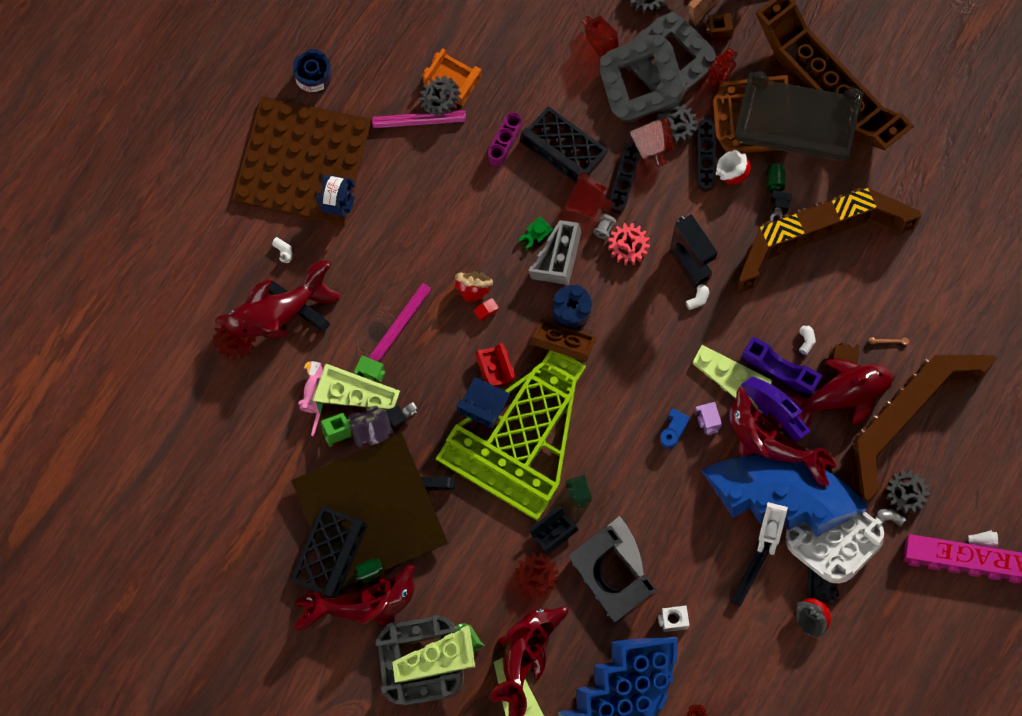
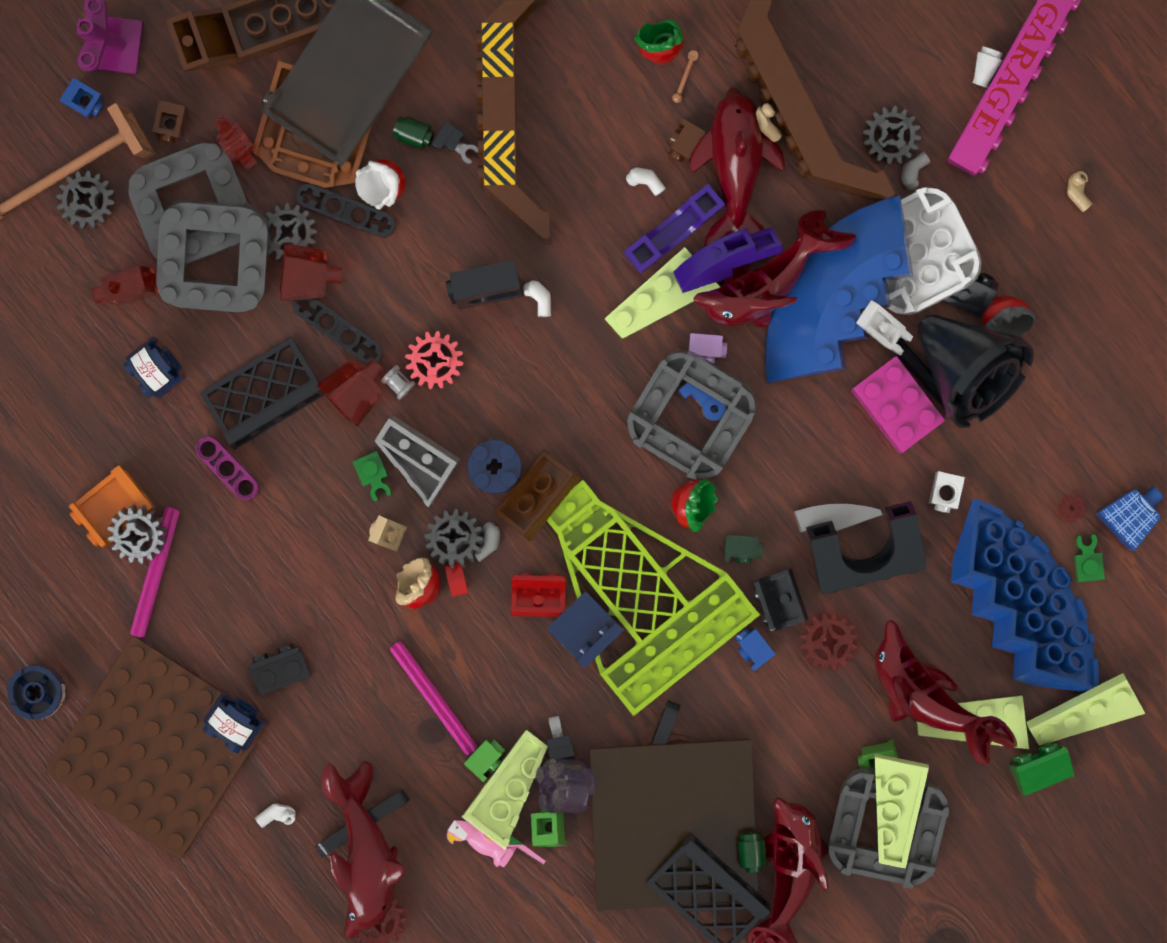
camera: 70 degrees left, 15 degrees up
(383, 218) = (279, 670): none -> black bracket
(500, 251) = (386, 533): none -> tan hinge
(512, 299) = (443, 538): none -> dark grey gear
(512, 524) = (754, 648): none -> blue brick
(520, 323) = (491, 540): none -> light grey arm
(553, 69) = (154, 368): none -> brick
(598, 447) = (694, 503): none -> green hair
(659, 394) = (670, 446): none -> dark grey plate
(721, 562) = (897, 405): none -> dark pink brick
(768, 604) = (972, 366): none -> black cone
(878, 397) = (766, 127): none -> tan arm
(904, 313) = (660, 41): none -> green hair
(924, 635) = (1076, 190): none -> tan arm

